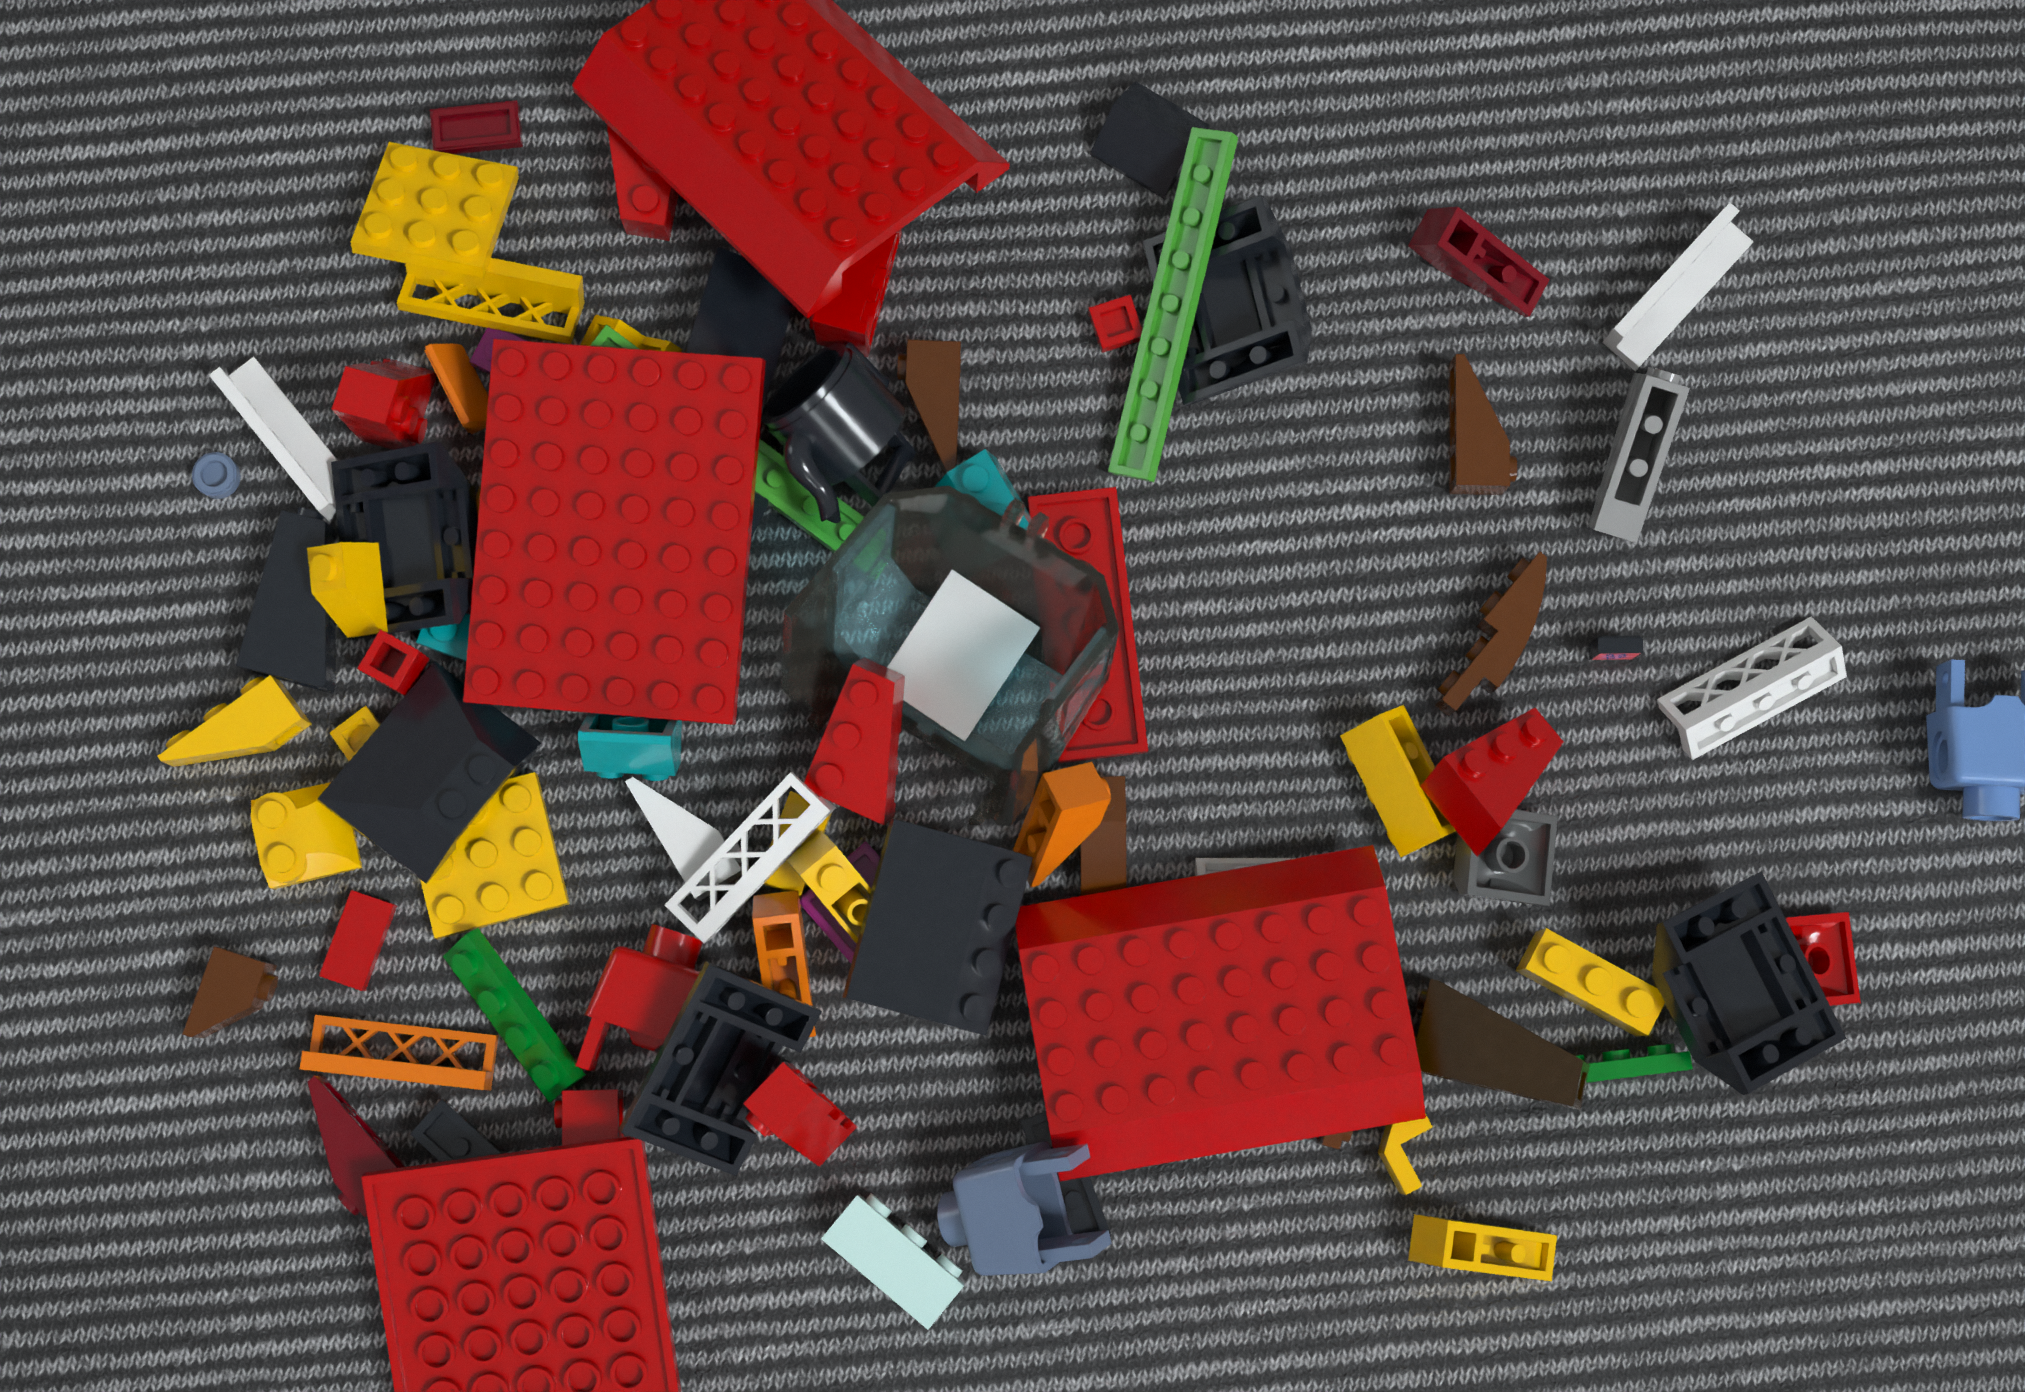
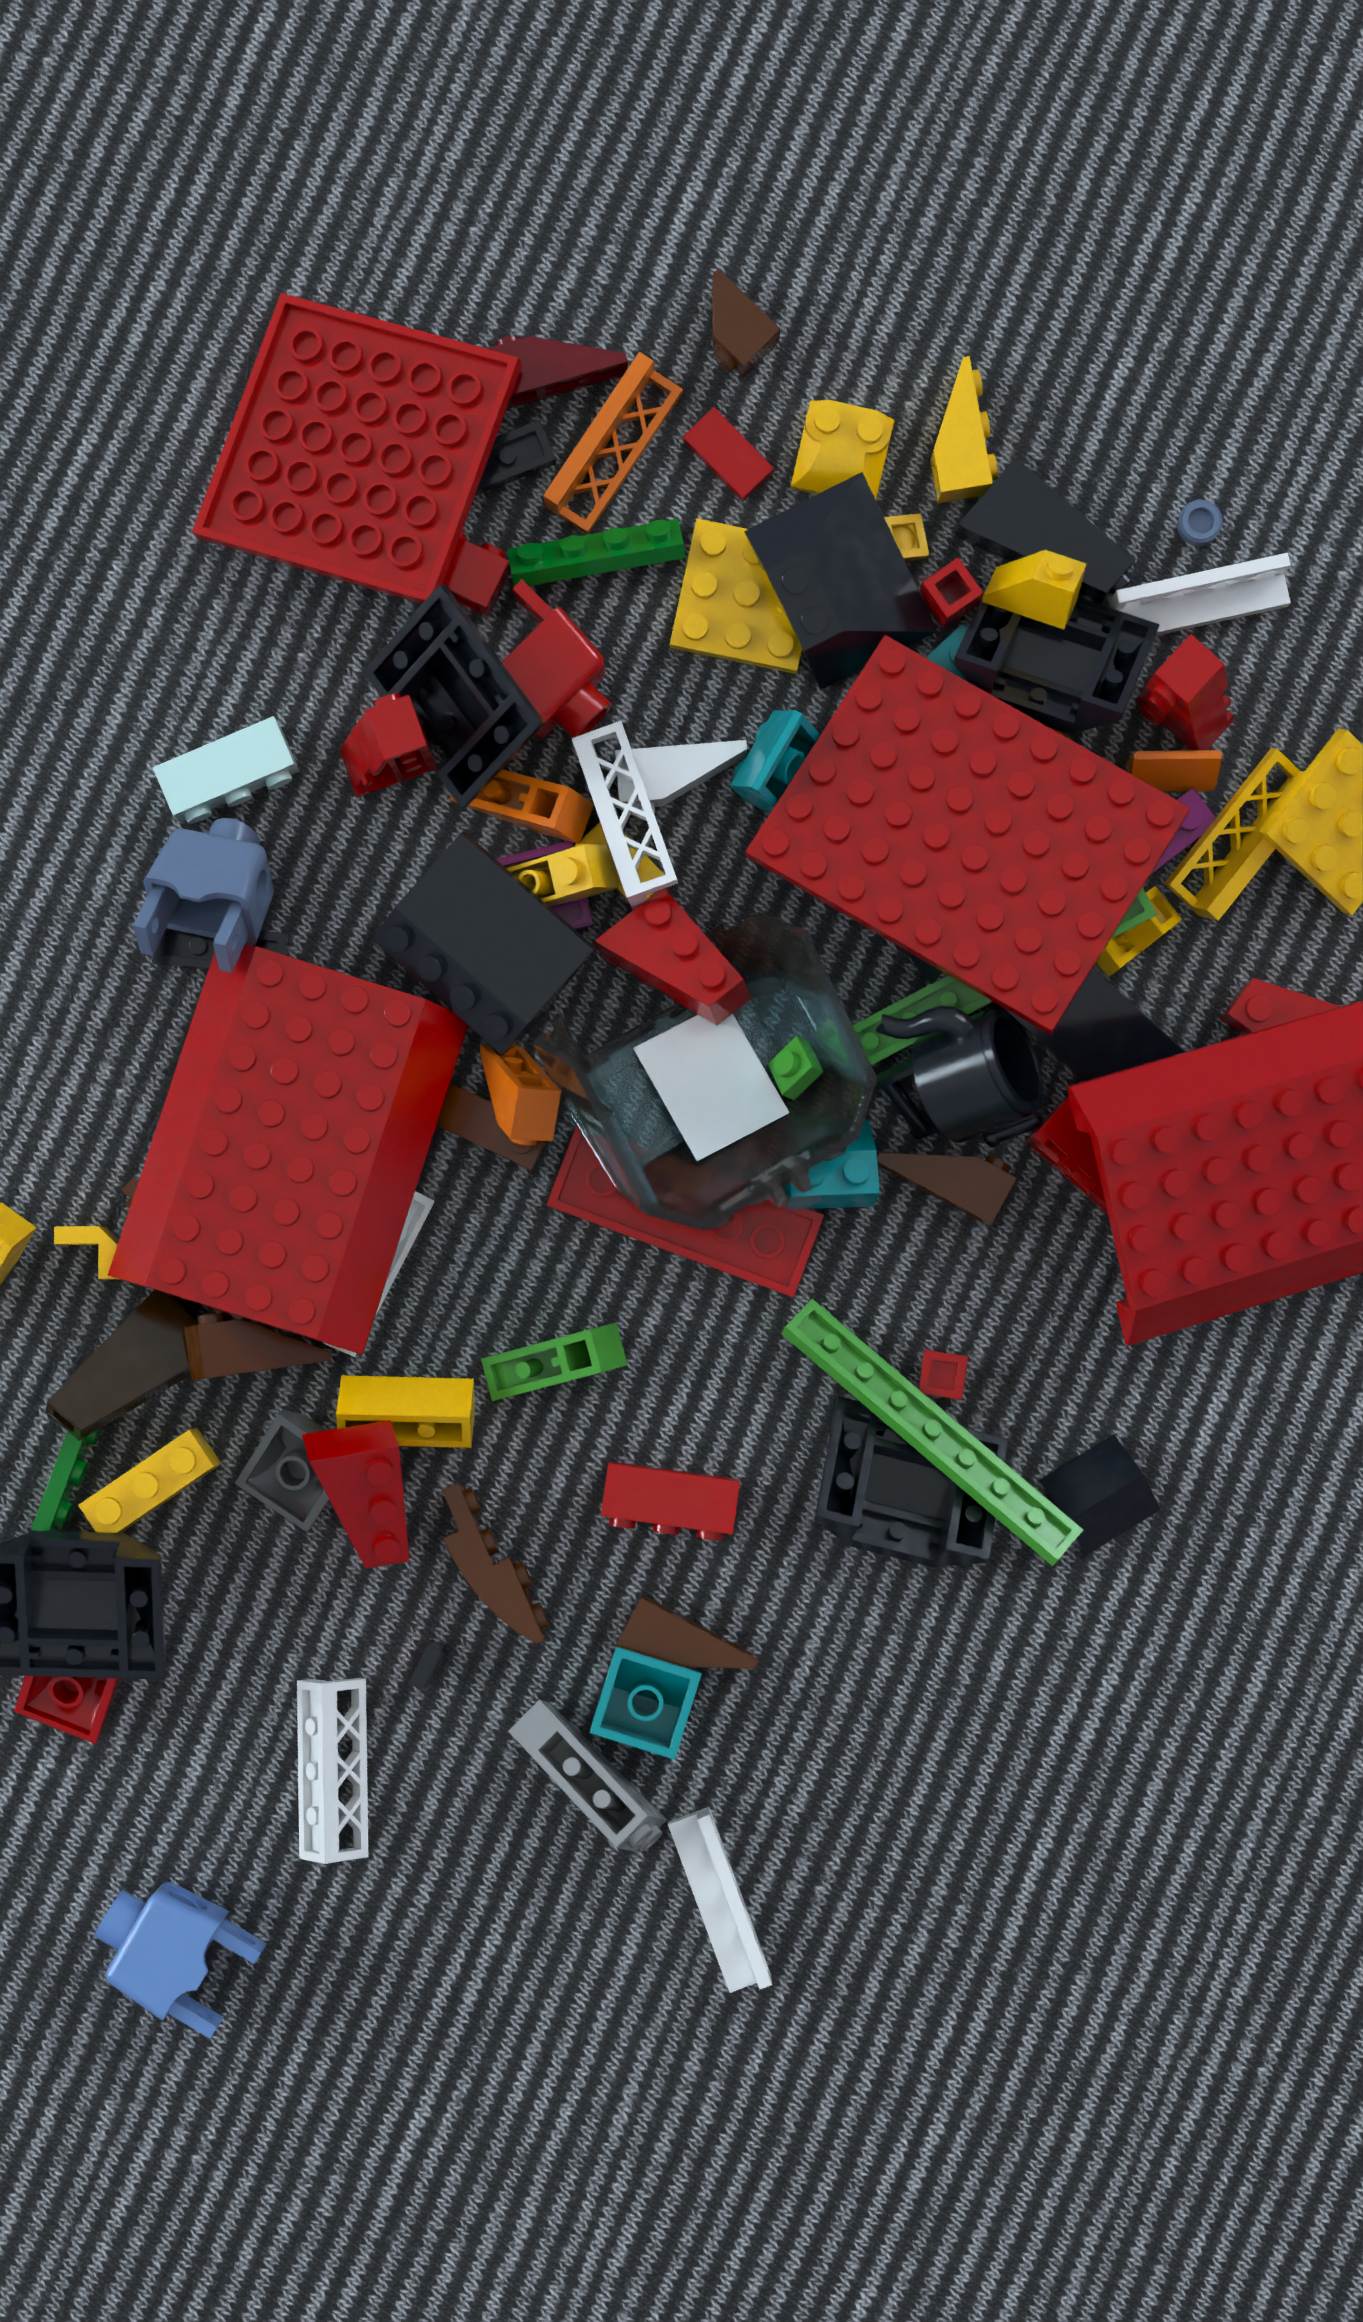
camera: 125 degrees right, 5 degrees up
(908, 584) = (795, 1067): none -> bright green plate
(1285, 671) = (554, 1361): none -> bright green slope
(1354, 506) = (670, 1500): none -> red brick
(1431, 963) = (240, 1347): none -> reddish brown slope
(1478, 259) = (837, 1731): dark red slope -> none
(1548, 434) = (645, 1702): none -> teal slope

